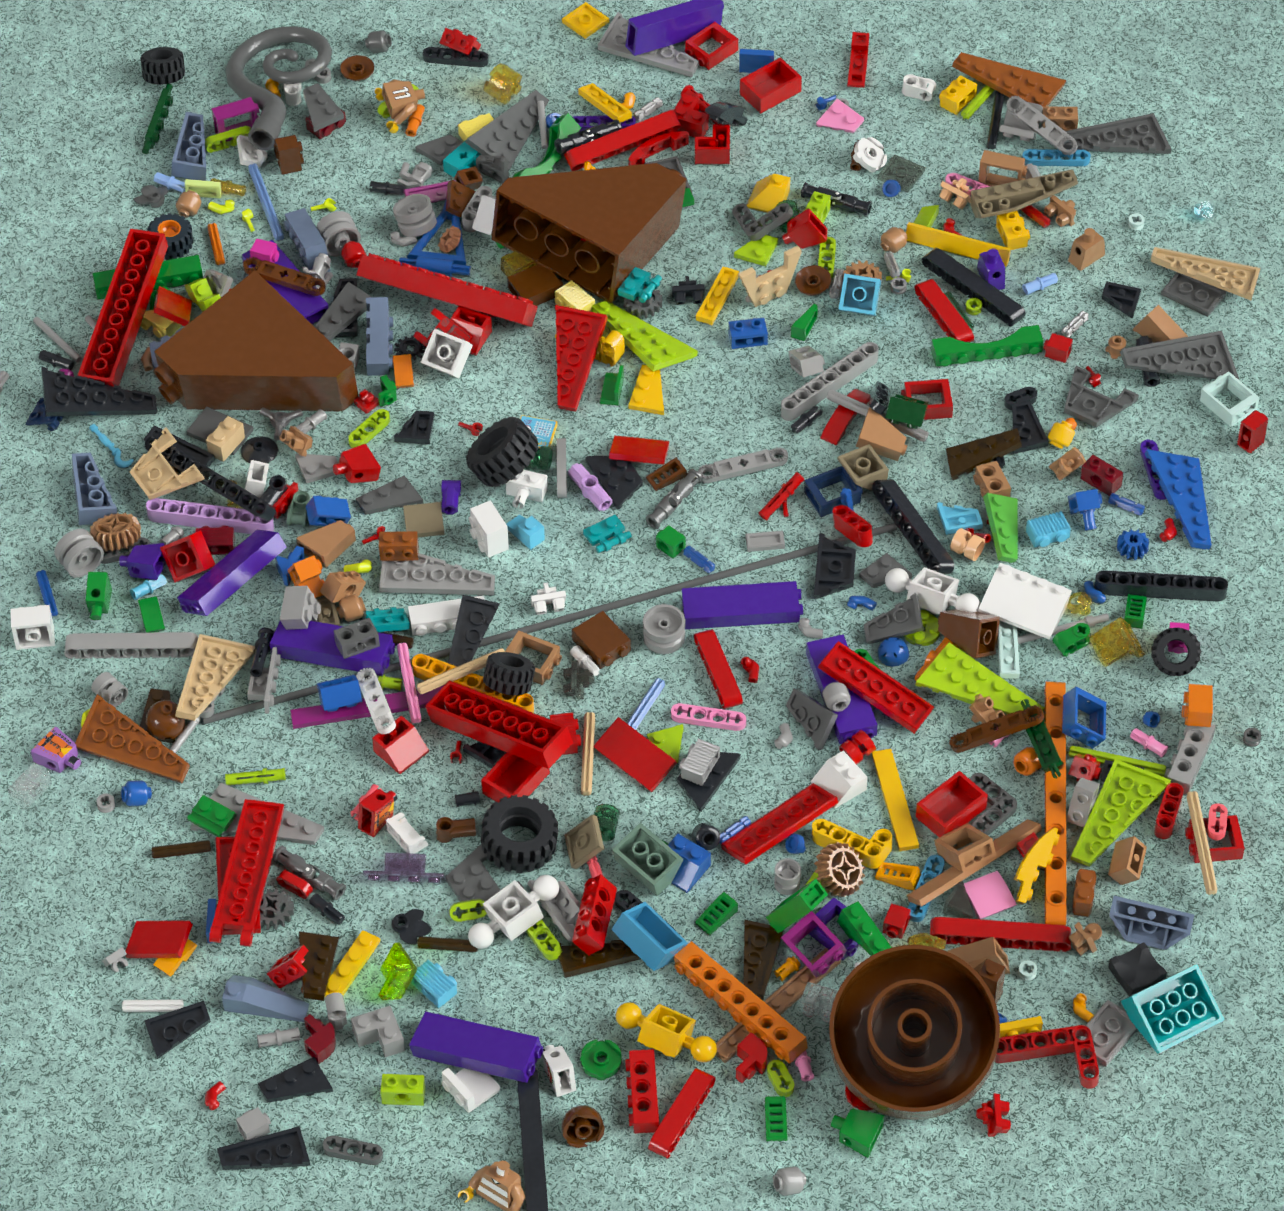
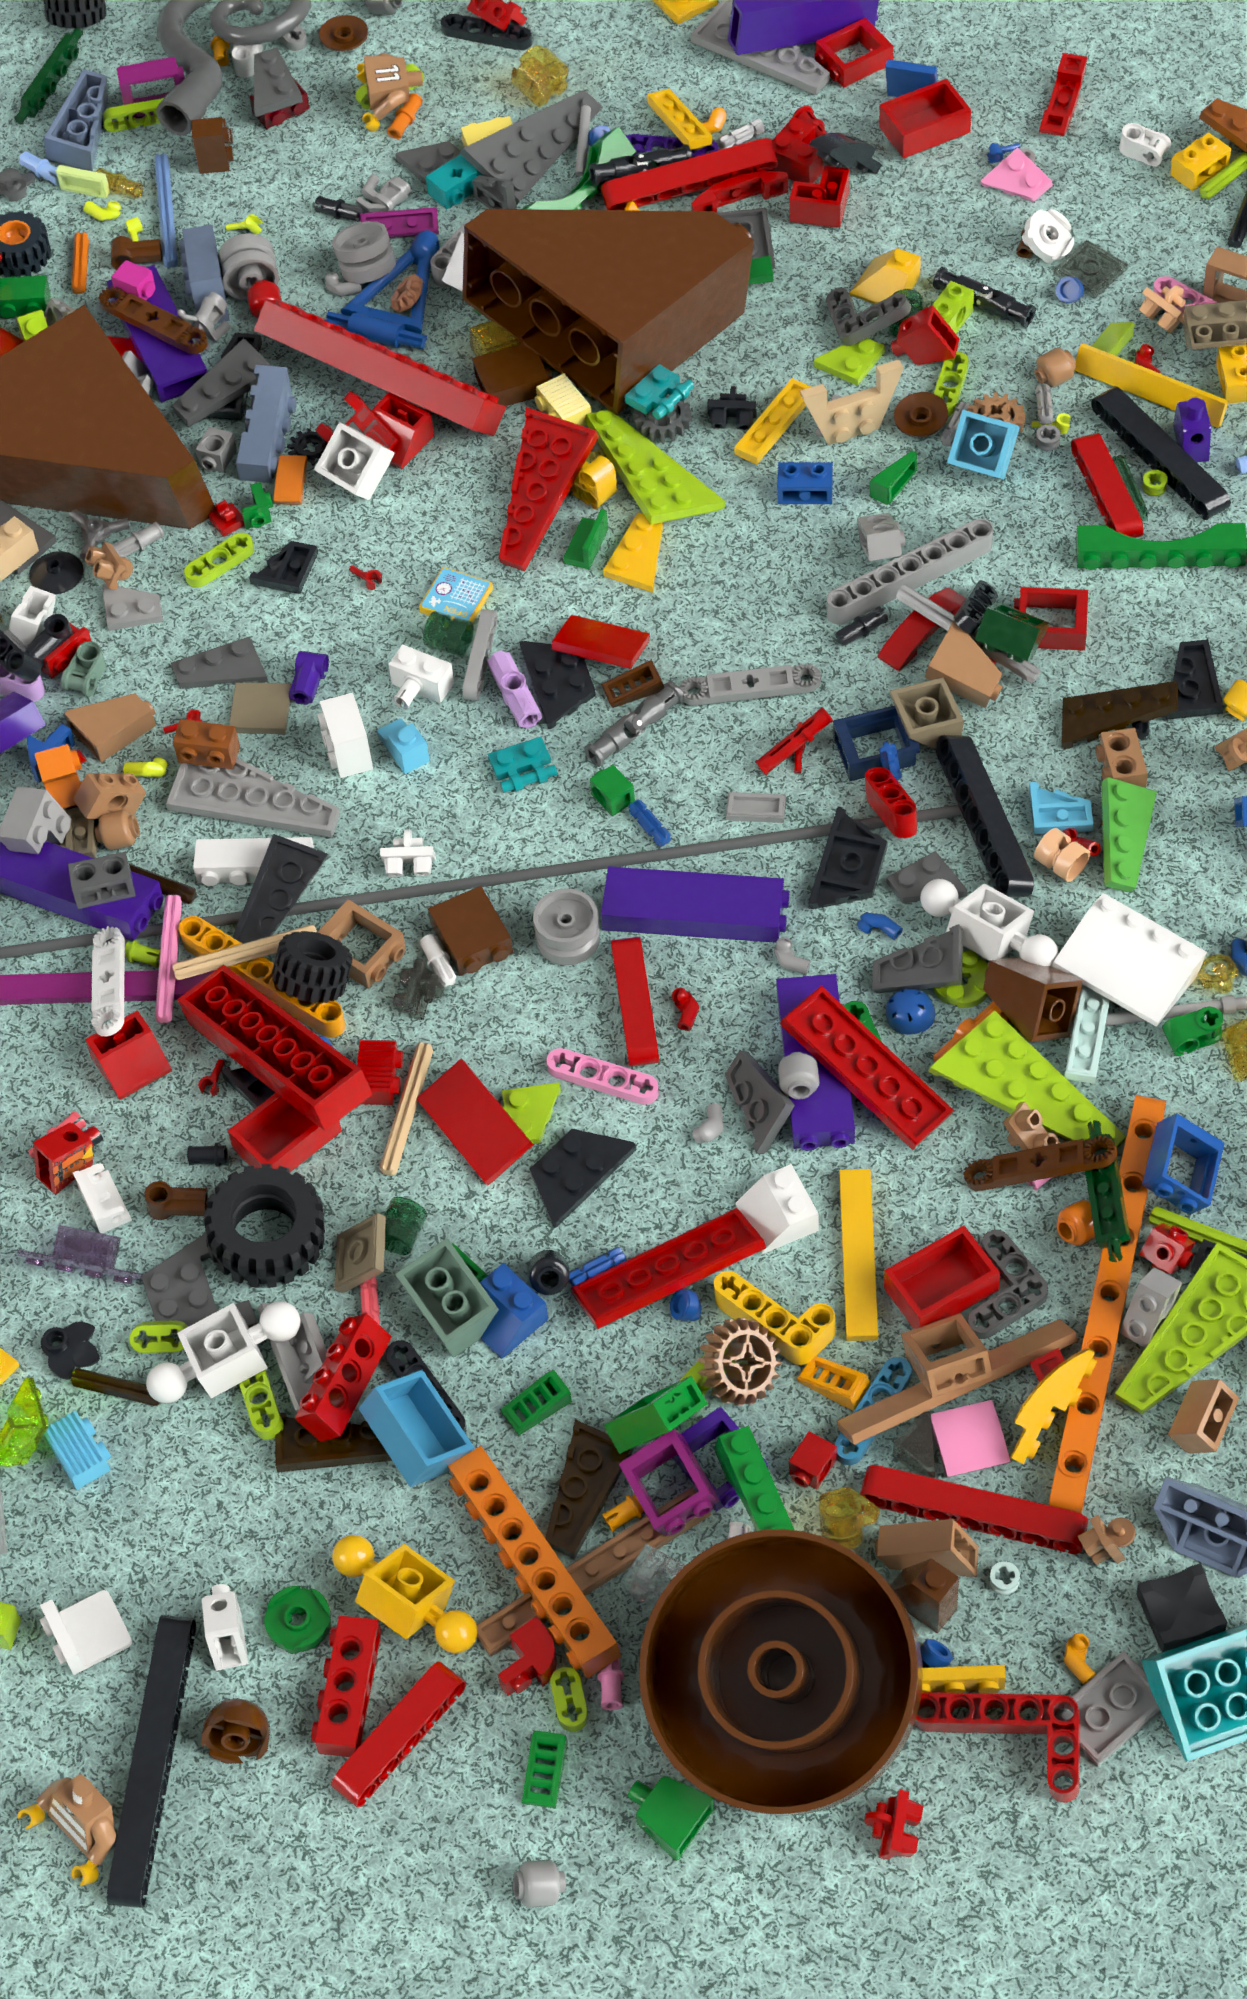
camera: 15 degrees right, 5 degrees up
(188, 203) = (56, 201): medium nougat head -> none
(247, 234) = (134, 251): none -> reddish brown piece
(248, 153) = (161, 140): white bracket -> none
(327, 510) = (120, 676): blue brick -> none
(339, 693) = (58, 961): blue brick -> none
(358, 465) = (184, 613): red torso -> none
(389, 619) = (163, 855): teal plate -> none
(457, 198) = (432, 233): reddish brown wing -> none
(469, 177) = (455, 209): reddish brown brick -> none
(476, 1047) = (107, 1569): dark purple brick -> none
(502, 452) = (390, 620): black tyre -> none
(646, 703) = (512, 1042): axle -> none
(699, 762) = (566, 1149): light grey brick -> none
(787, 876) = (658, 1359): light grey wheel -> none
(865, 745) = (807, 1169): red wheel -> none
(1020, 396) = (1195, 630): black beam -> none
(1048, 529) = (1193, 847): medium azure brick -> none
(1084, 892) = (1122, 1460): dark orange brick -> none

